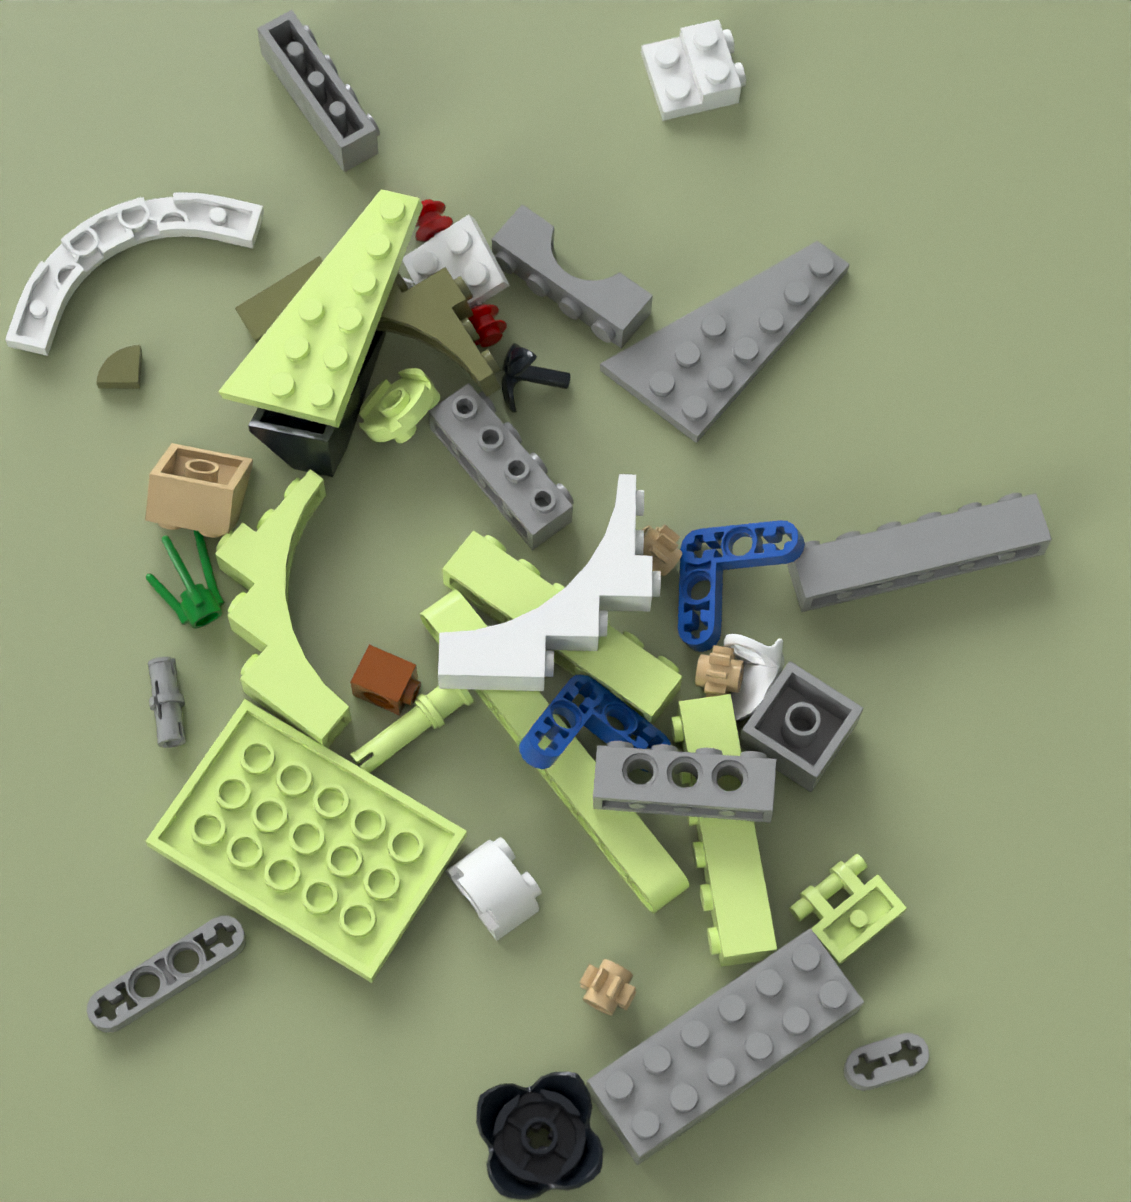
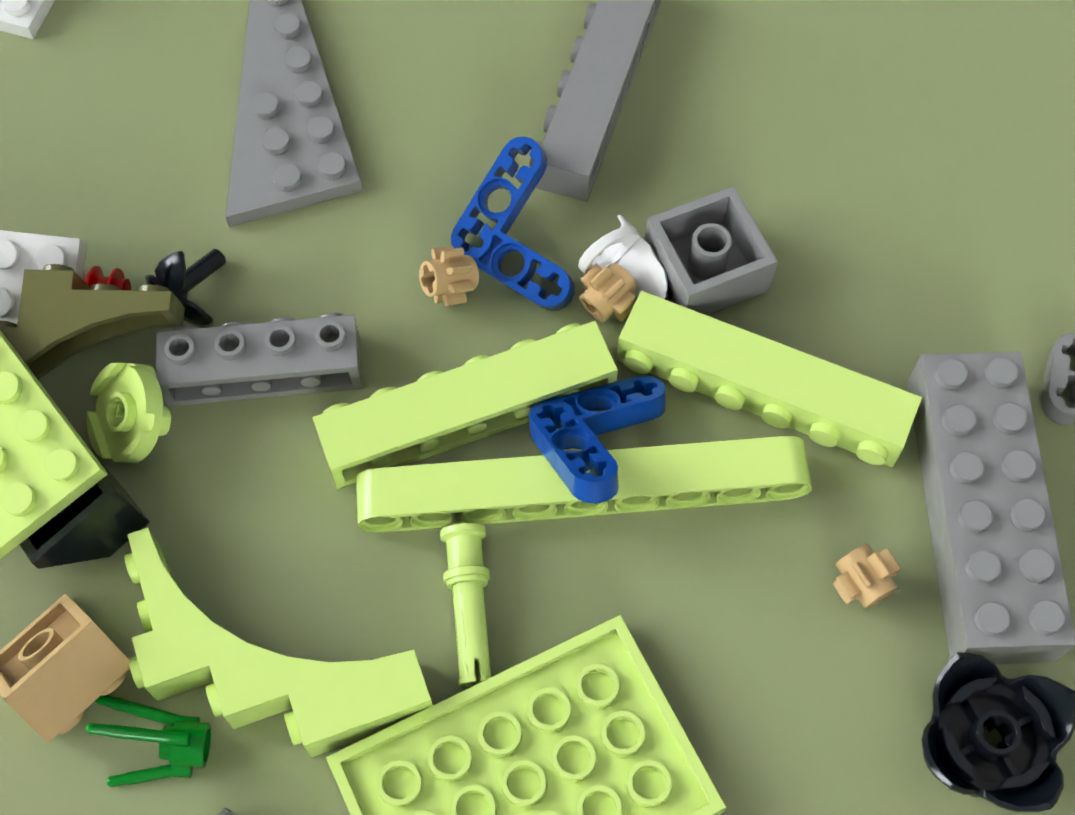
camera: 55 degrees left, 5 degrees down
(385, 680) = (405, 599): dark orange brick -> none
(496, 887) = (689, 623): white cylinder -> none
(522, 650) = (477, 442): white arch -> none
(609, 306) = (171, 180): light grey arch -> none
(662, 796) = (676, 439): light grey brick -> none
(857, 918) = (917, 316): yellowish green plate -> none

